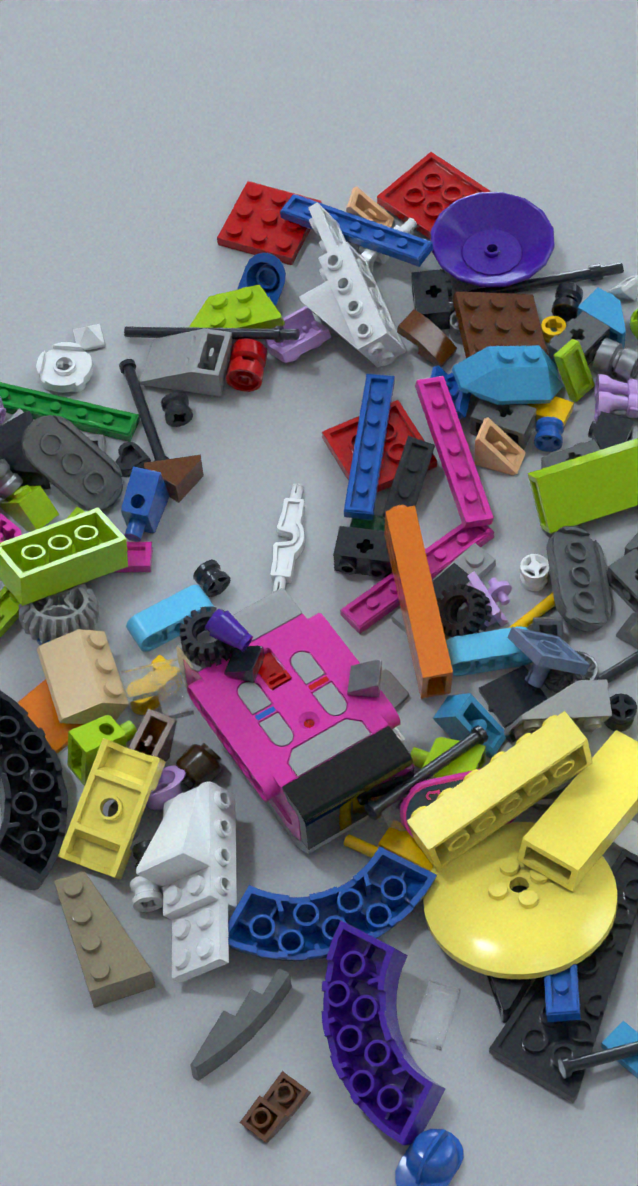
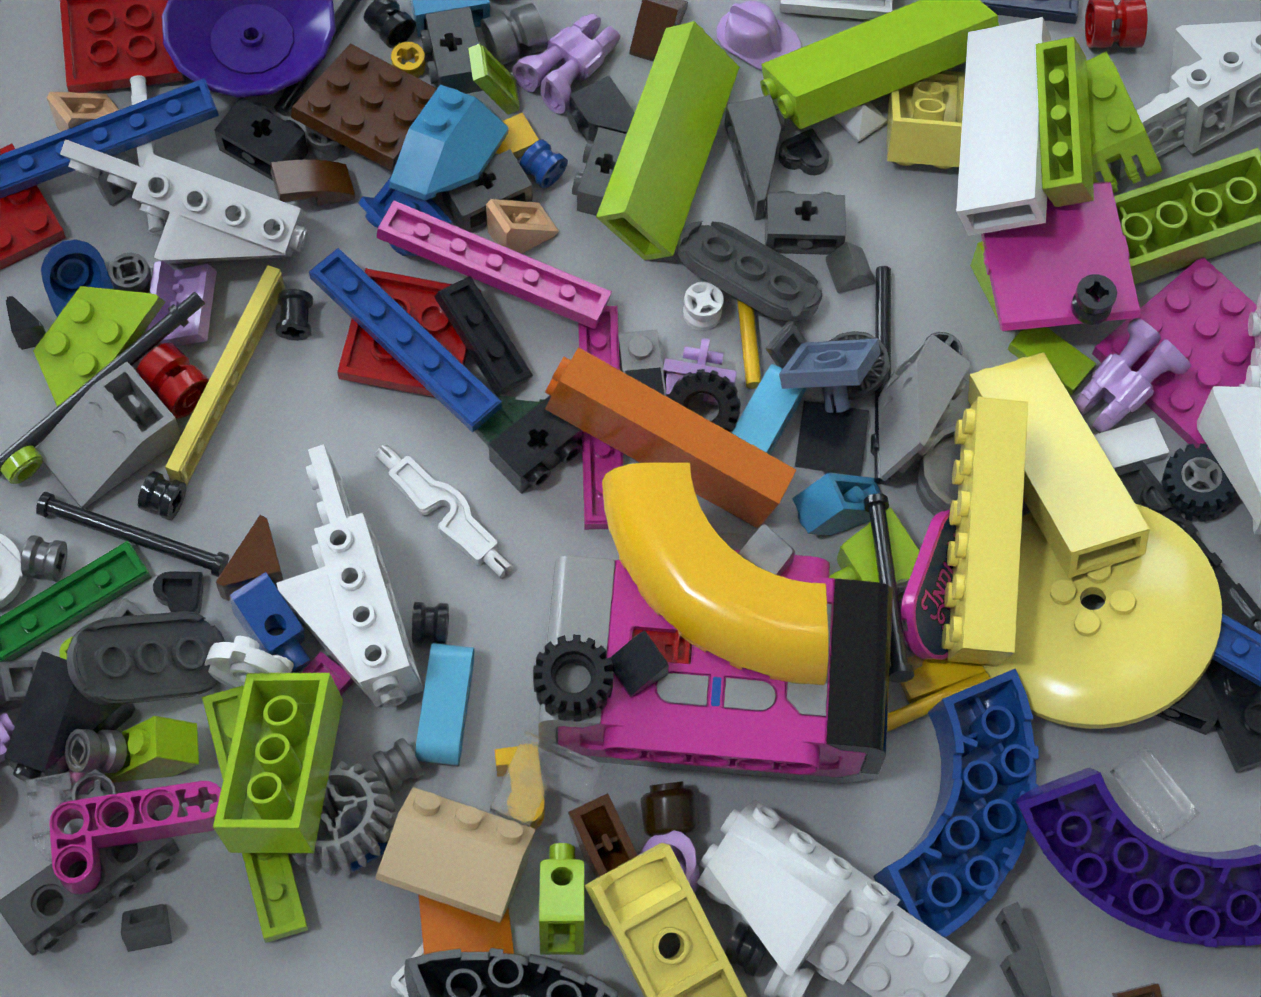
camera: 60 degrees left, 10 degrees up
(95, 386) = (44, 558): none -> flat silver wheel
(106, 501) = (234, 660): none -> white plate
(115, 620) = (397, 764): none -> flat silver wheel
(139, 339) = (22, 464): none -> lime tile
(192, 526) = (350, 596): none -> white wedge
(218, 279) = (24, 325): none -> black slope
(227, 629) = (603, 649): dark purple cone -> none
(273, 386) = (225, 377): none -> light yellow tile
(288, 301) = (130, 273): none -> flat silver wheel
(317, 661) = (706, 585): none -> yellow brick
(339, 389) = (294, 314): none -> black bush

